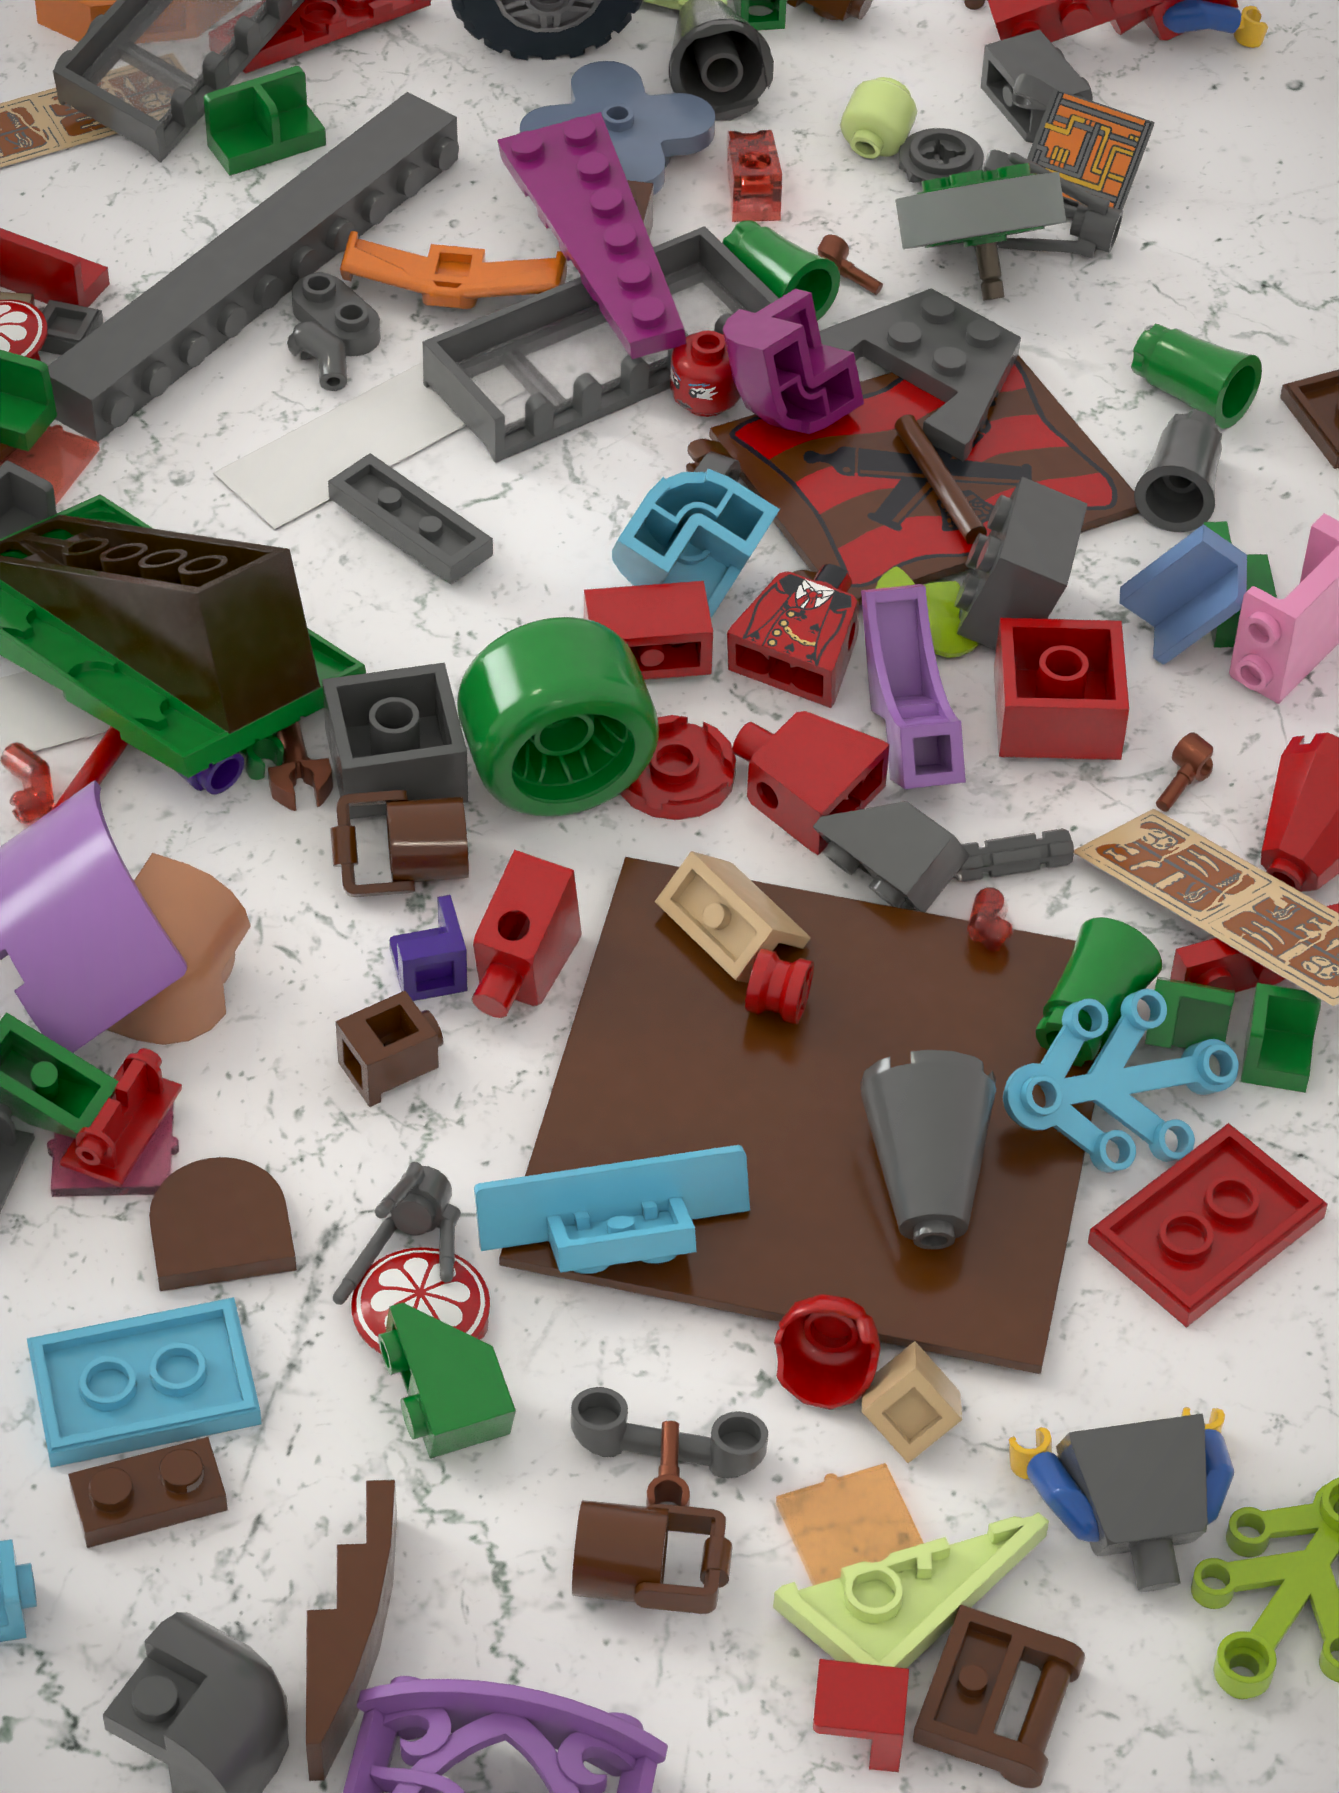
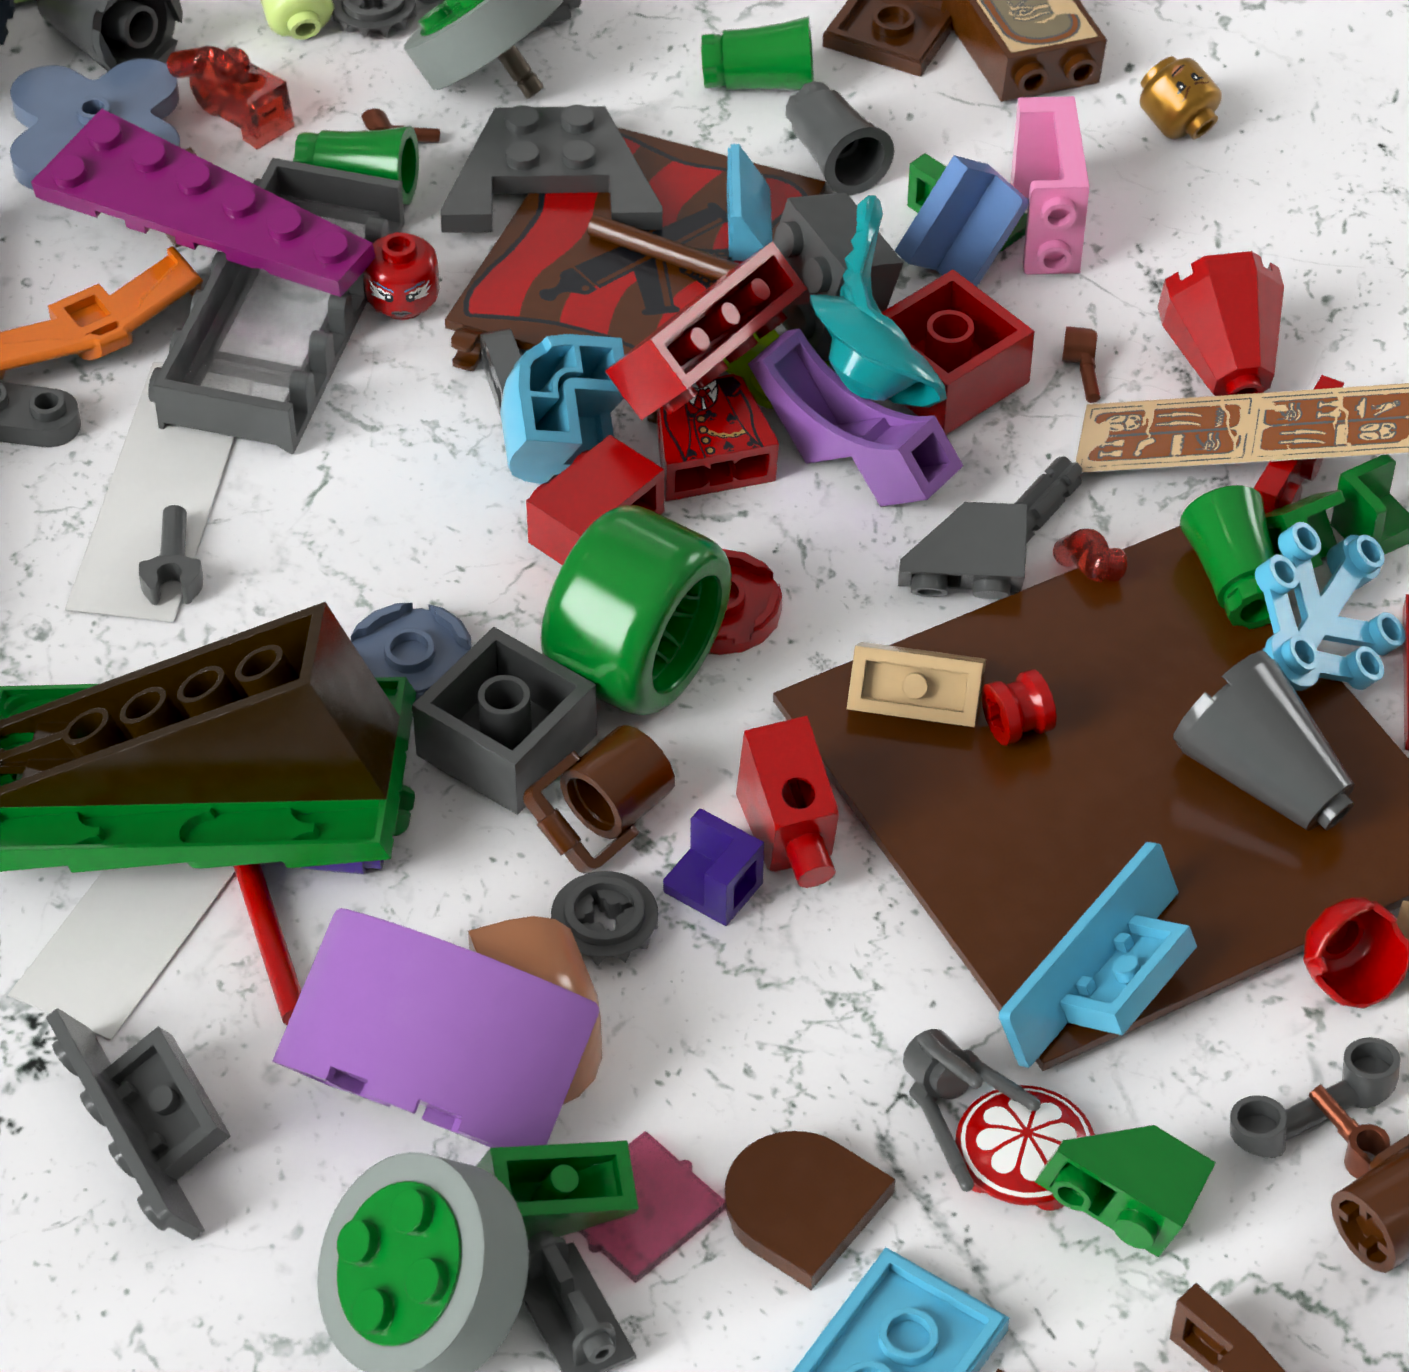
camera: 40 degrees left, 0 degrees up
(35, 775) = (227, 952): clear red arm -> none
(125, 1122) = (661, 1200): red hinge -> none
(298, 765) = (430, 799): copper bar -> none
(303, 915) = (619, 898): none -> dark grey gear
(313, 486) = (172, 562): none -> dark grey bar
(326, 347) = (53, 444): dark grey arm -> none
(387, 1045) = (775, 965): reddish brown brick -> none
(407, 640) = (411, 643): none -> sand blue tile
(410, 518) = (289, 539): dark grey plate -> none
(736, 131) = (210, 64): none -> clear red arm
(787, 370) = (480, 227): magenta brick -> none
(810, 772) = (837, 538): red torso -> none
(848, 542) = (705, 332): none -> red brick
(968, 613) = (866, 345): none -> teal hat
(1050, 461) = (746, 206): none -> medium azure slope

